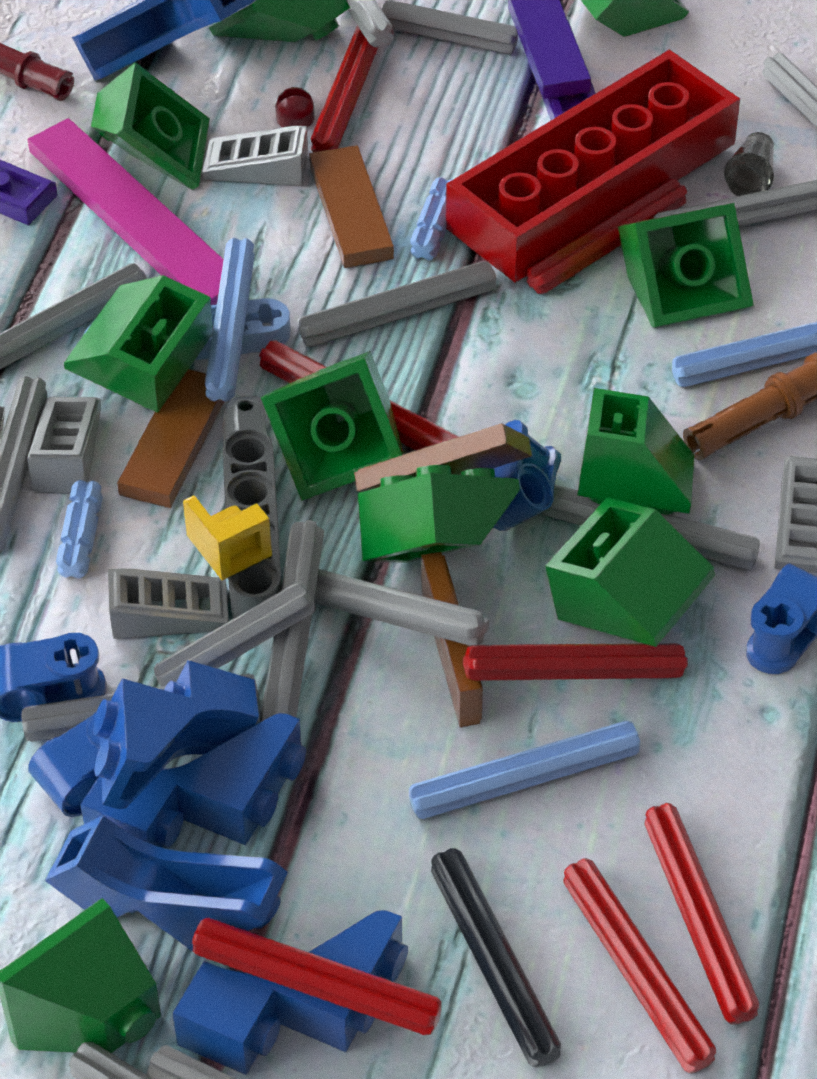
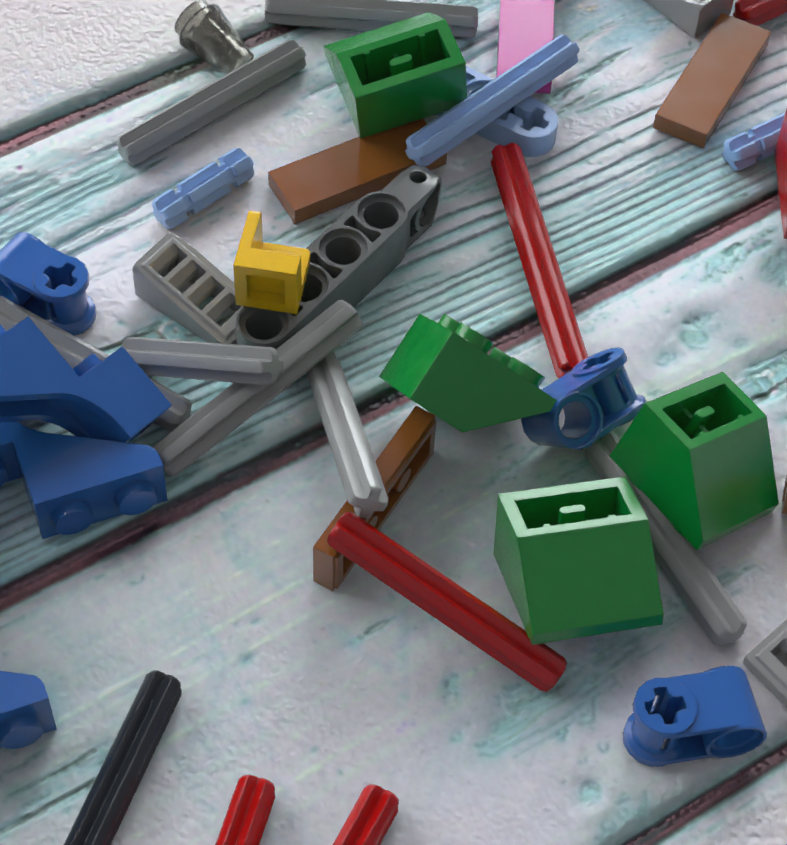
camera: 40 degrees right, 5 degrees up
(63, 450) = (266, 115): light grey slope -> none
(333, 424) = (476, 245): green slope -> none
(397, 303) = (661, 186): light grey axle -> none
(480, 449) = (528, 342): tile -> none
(524, 769) = (317, 661): light blue axle -> none

